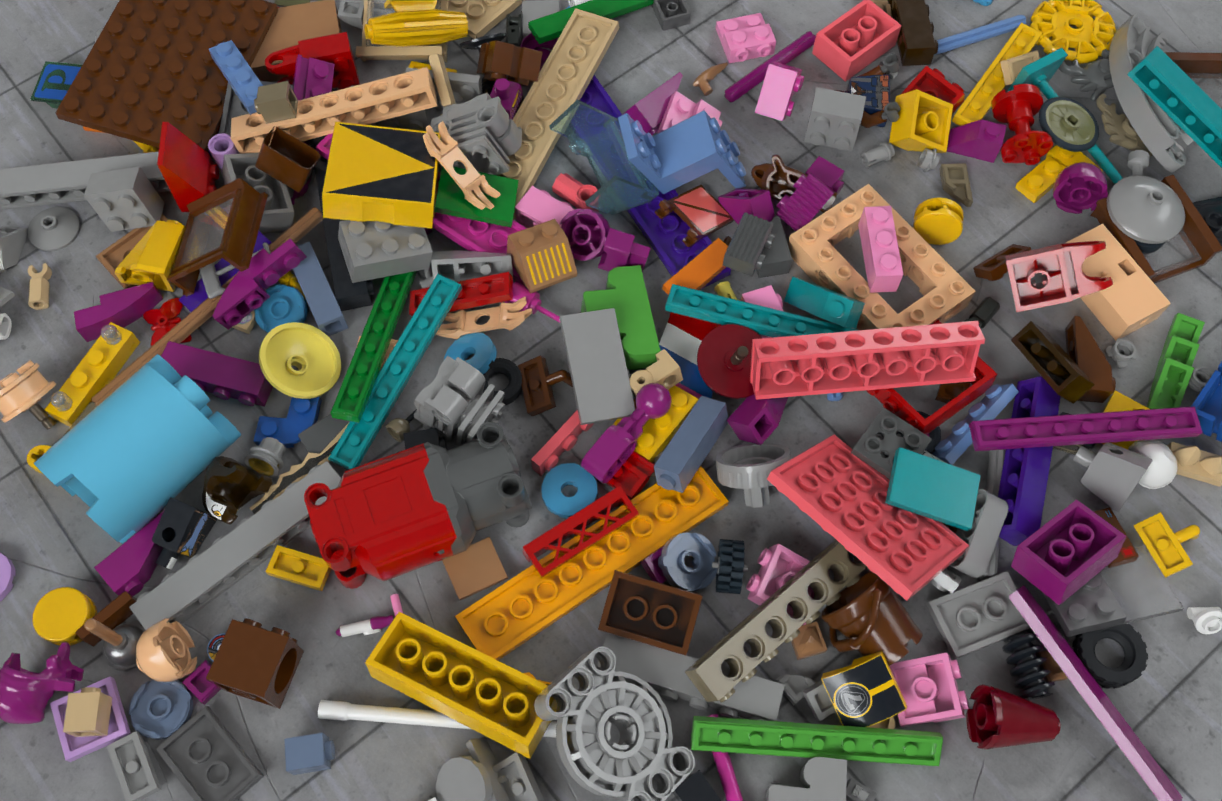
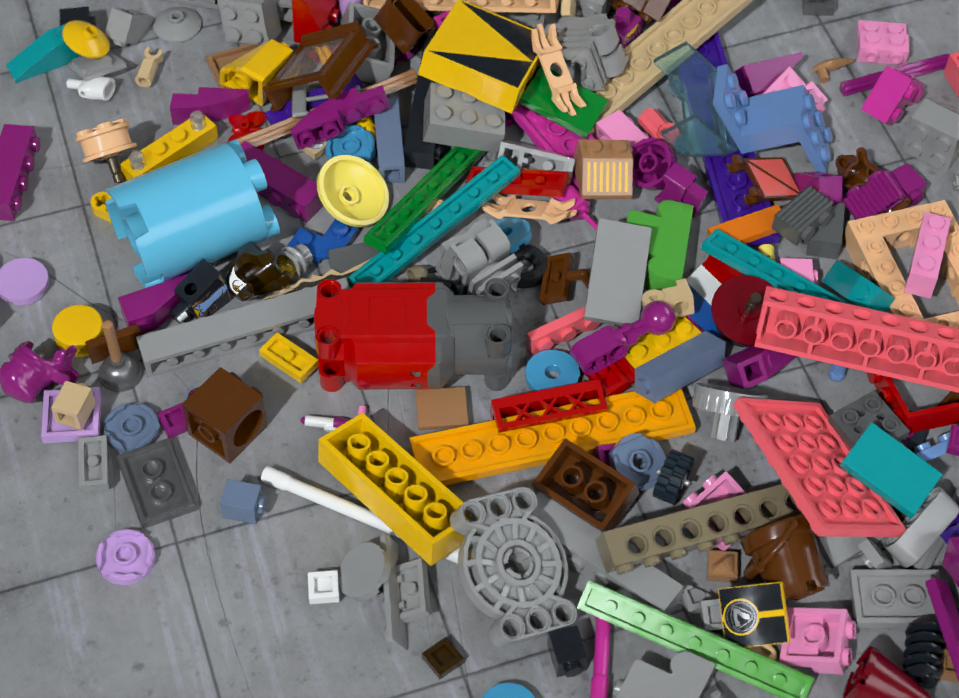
camera: 20 degrees right, 10 degrees down
(165, 652) = (152, 382): light nougat cylinder -> none

